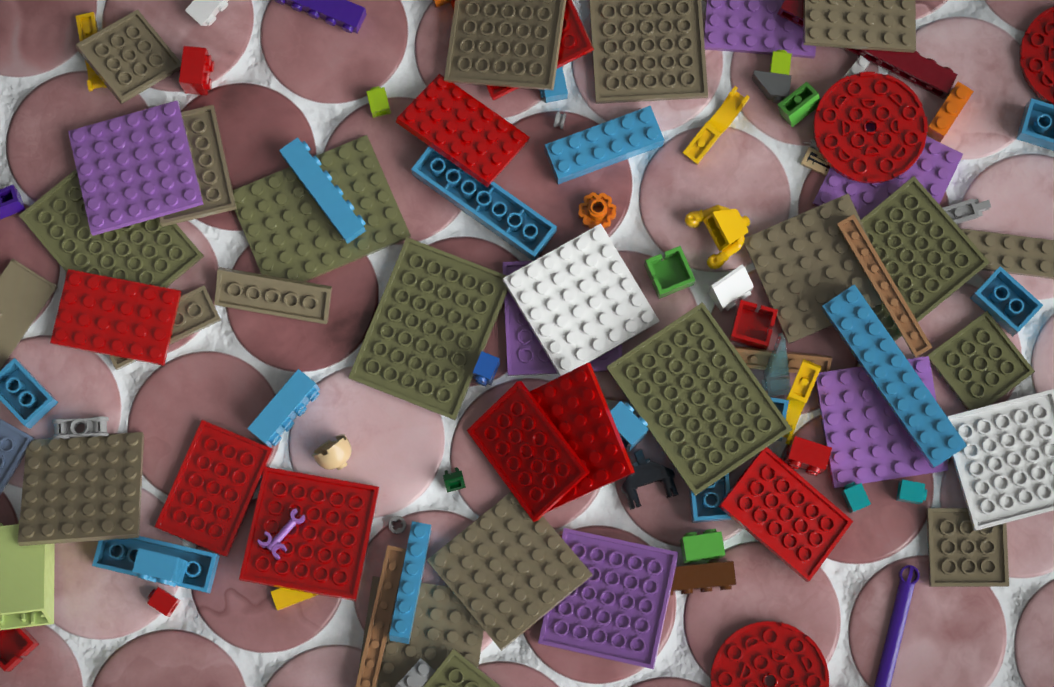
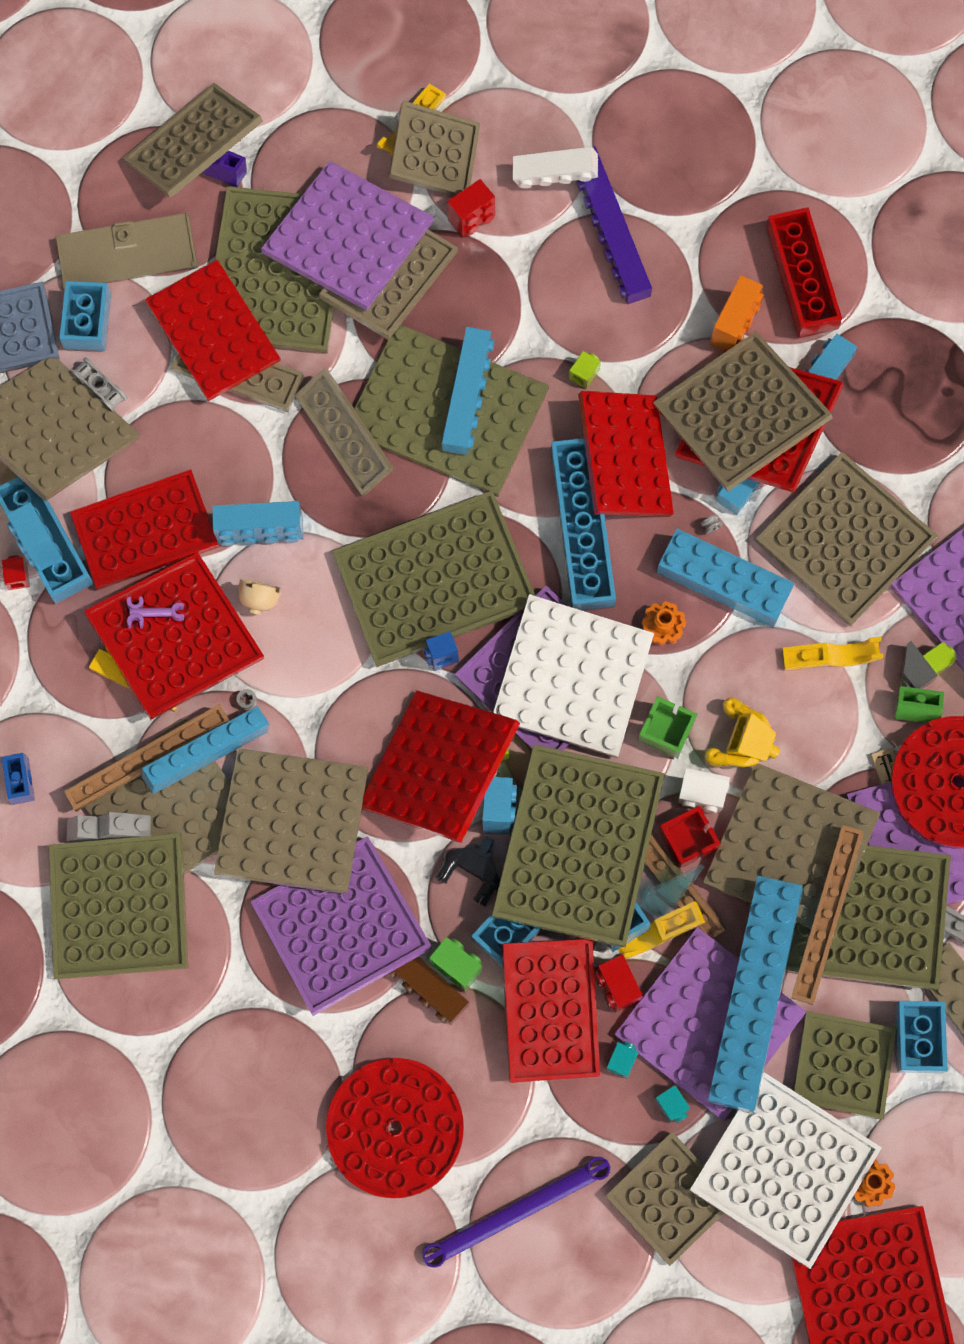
camera: 50 degrees right, 5 degrees down
(454, 481) = (325, 711): dark green tile -> none
(527, 451) = (402, 745): red plate -> none

